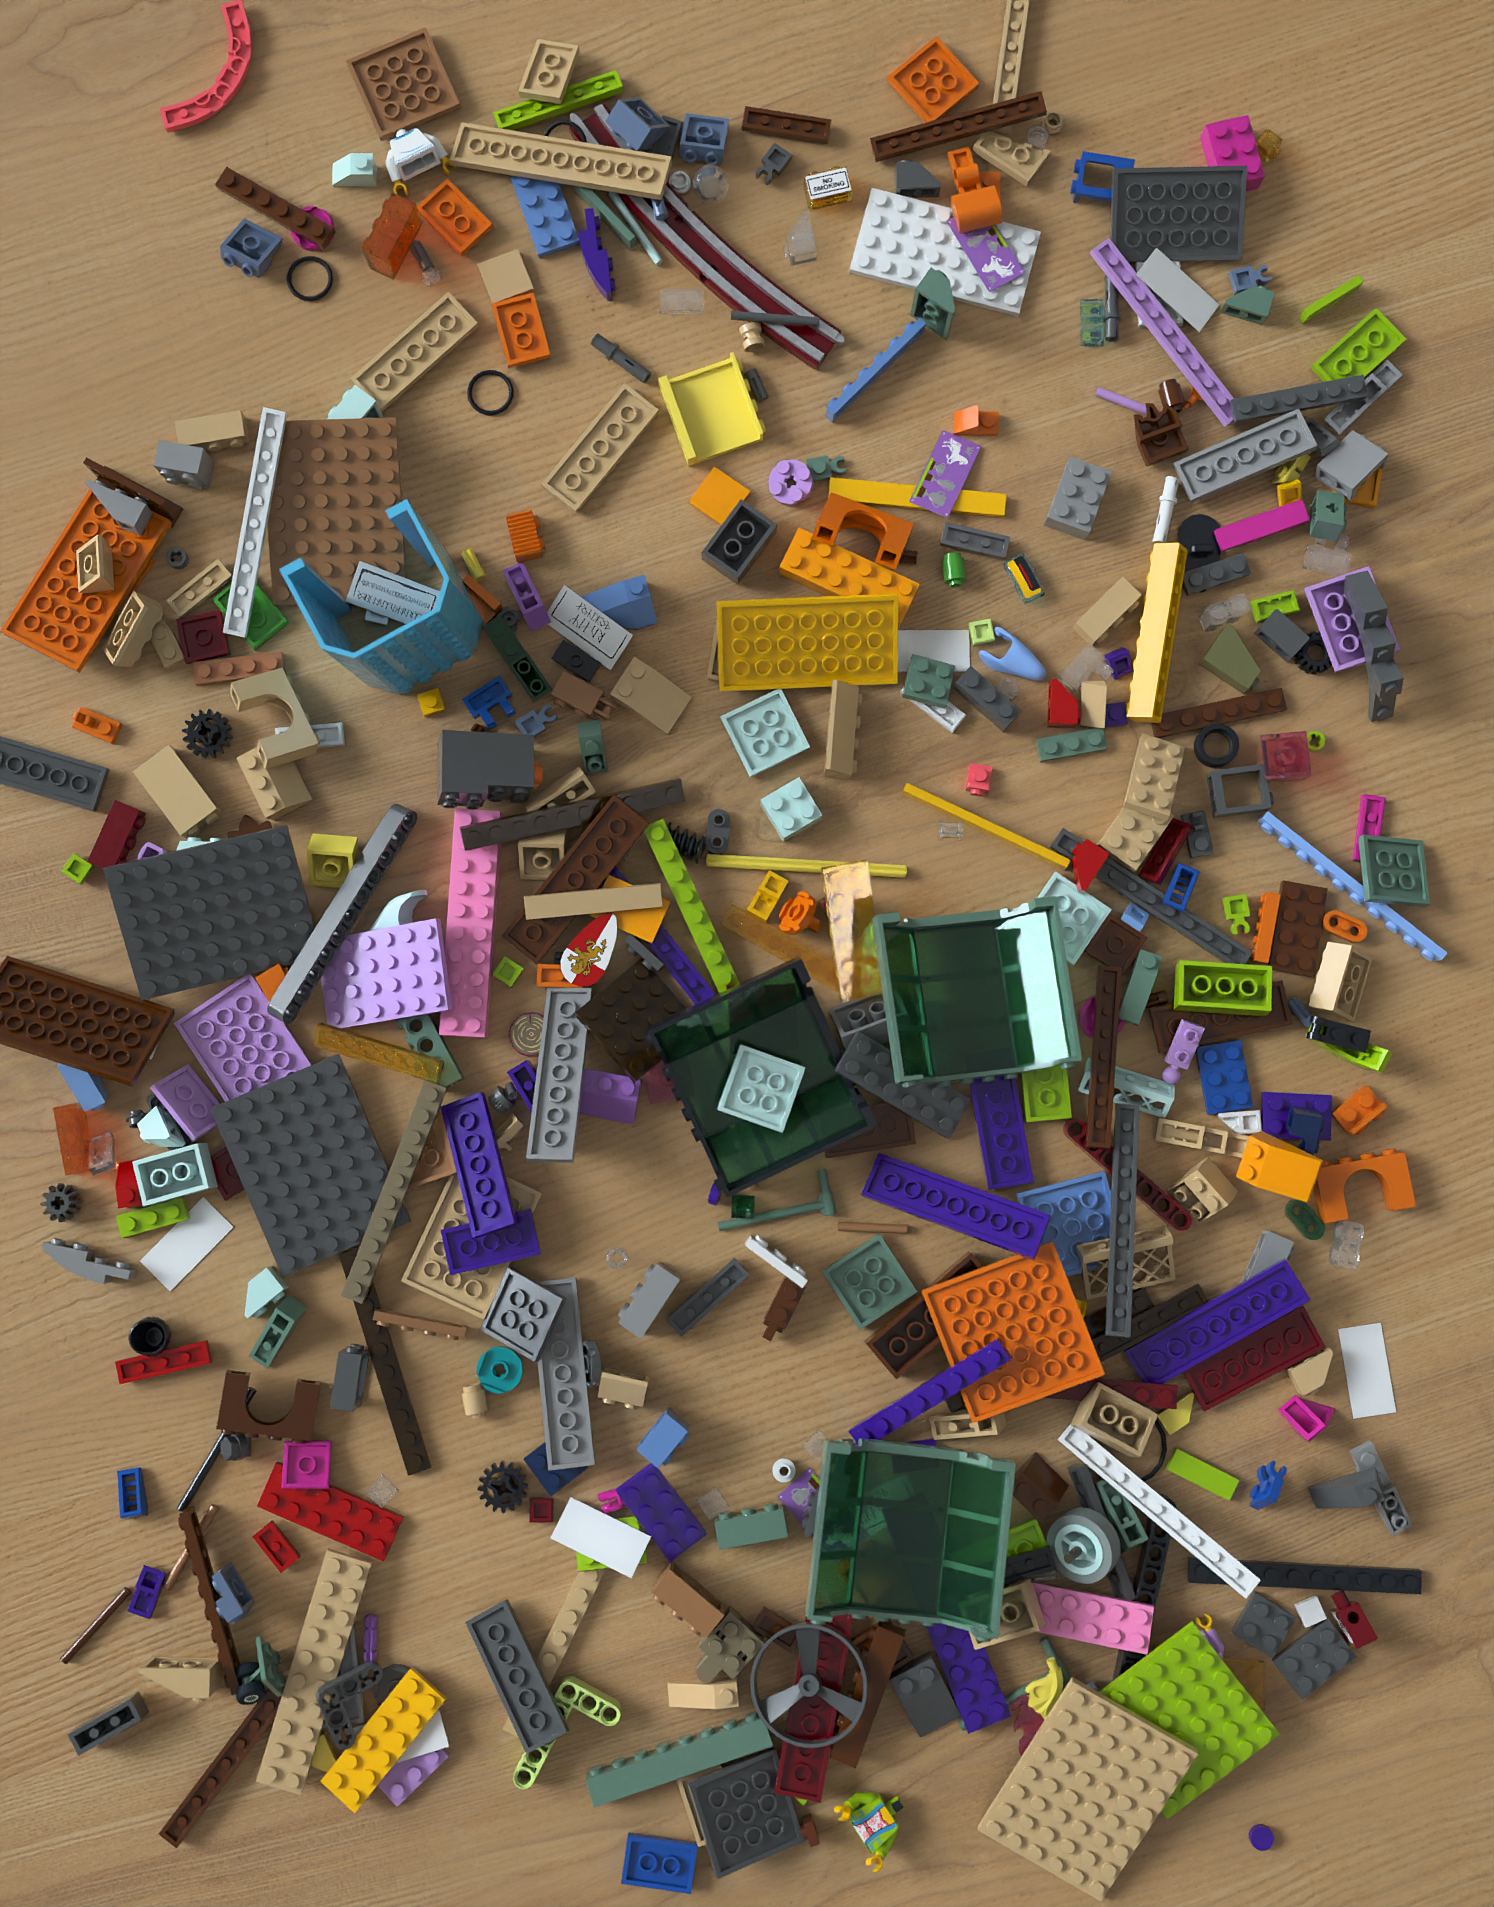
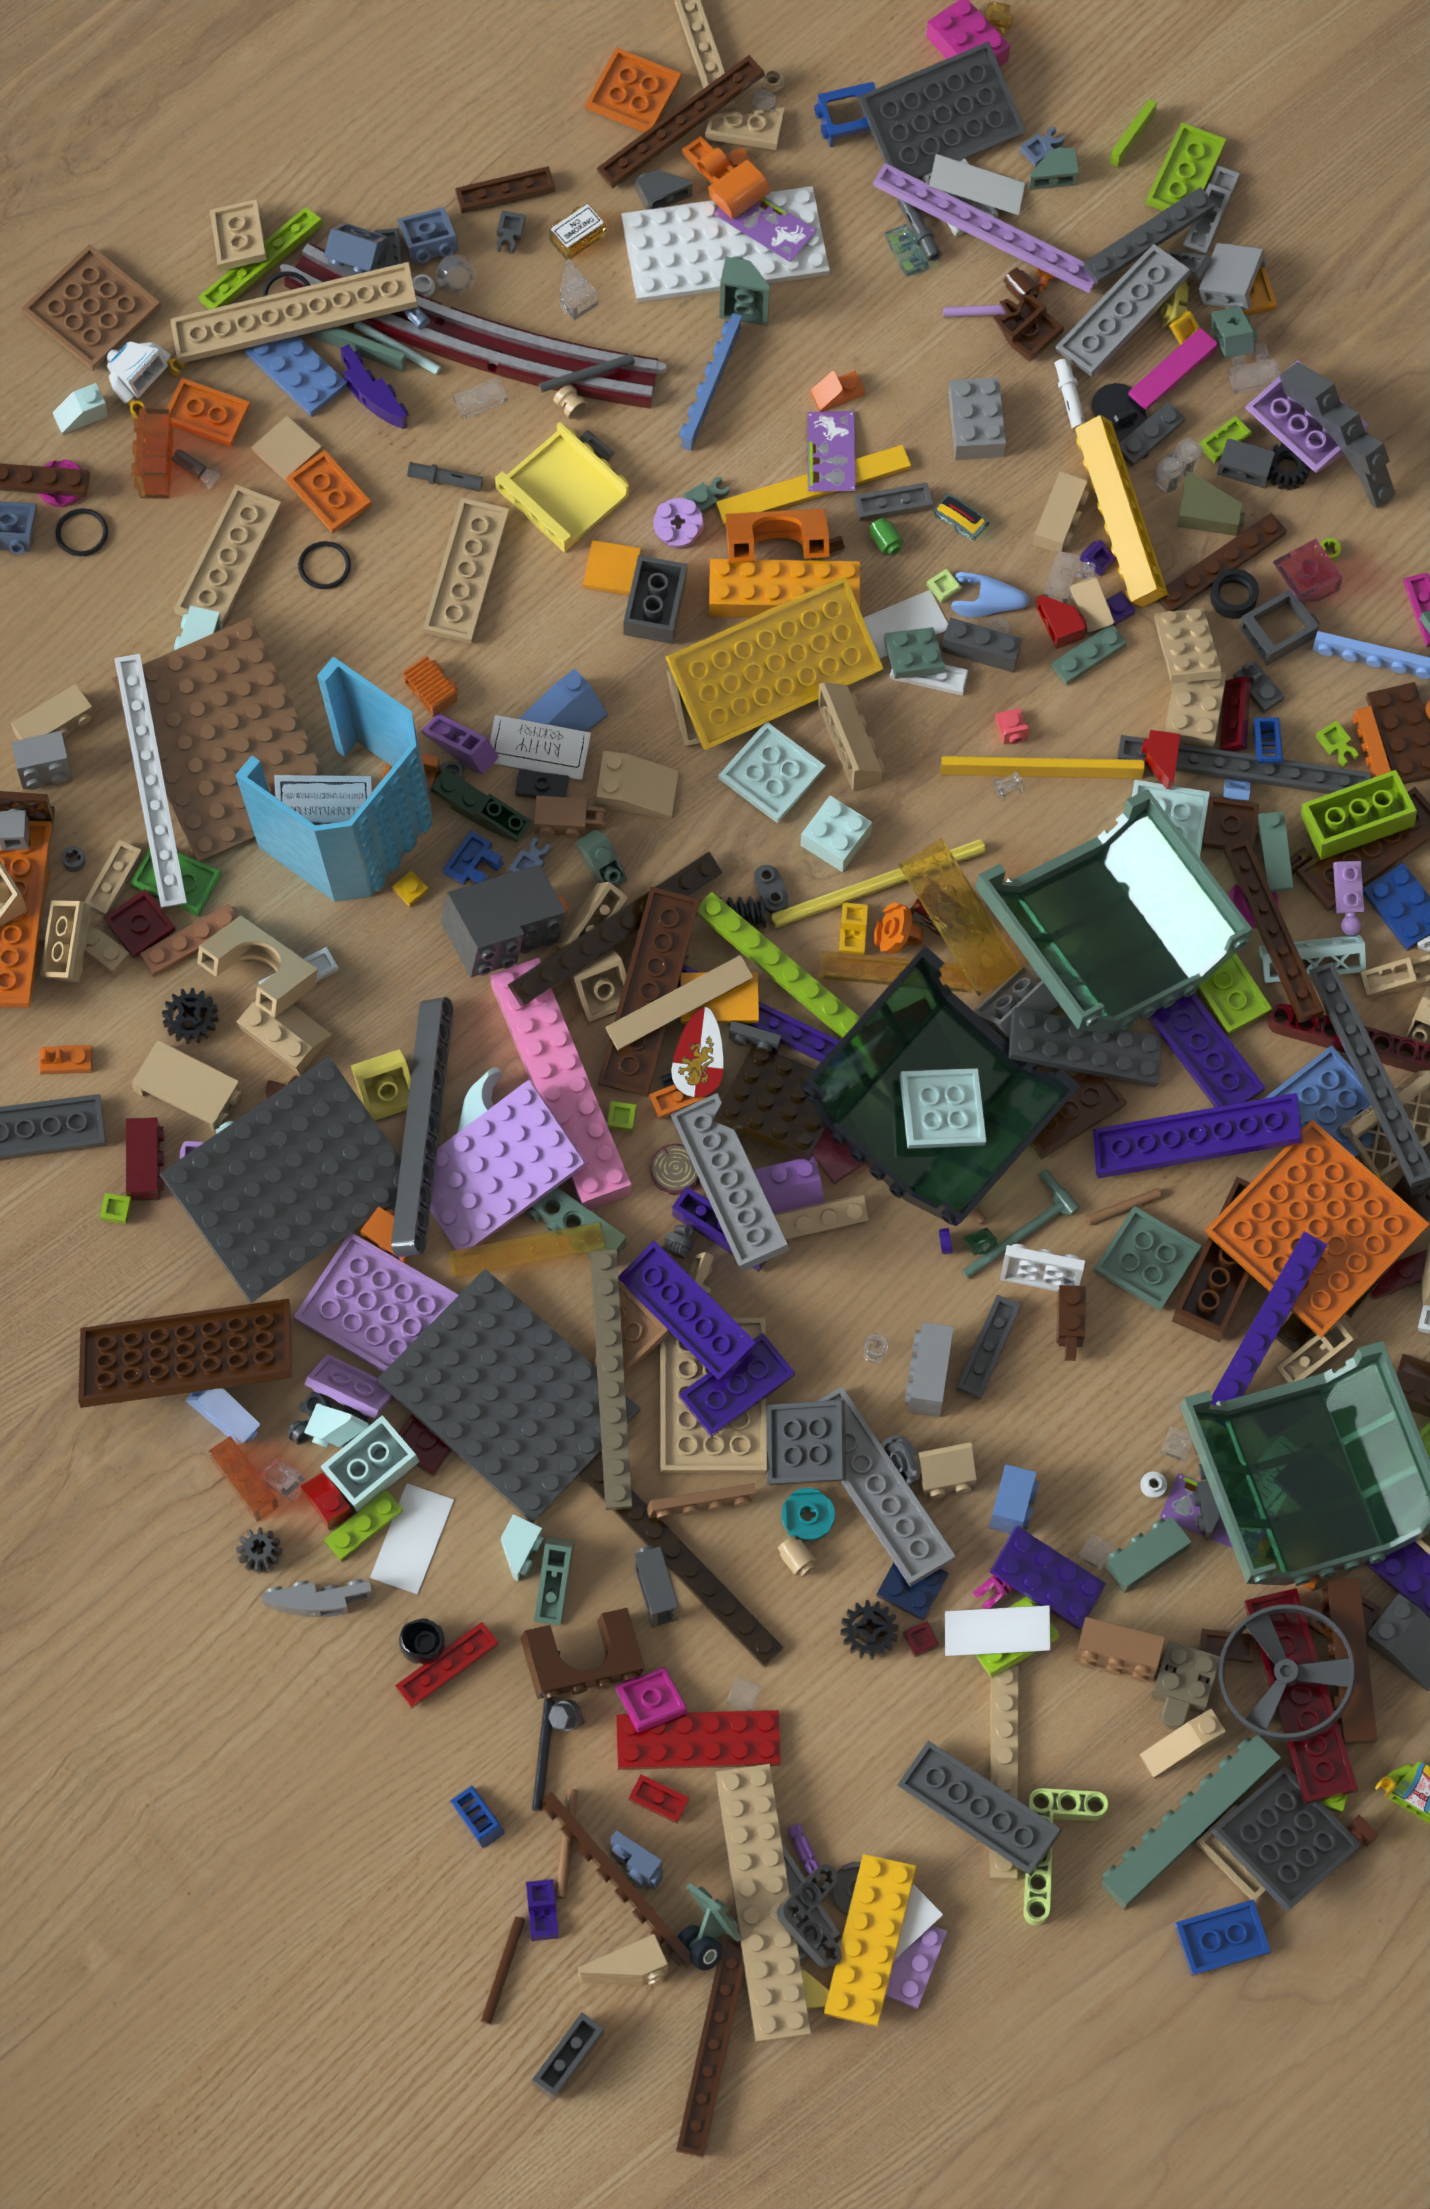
camera: 25 degrees left, 15 degrees down
(622, 1127) = (822, 1216): none -> tan plate

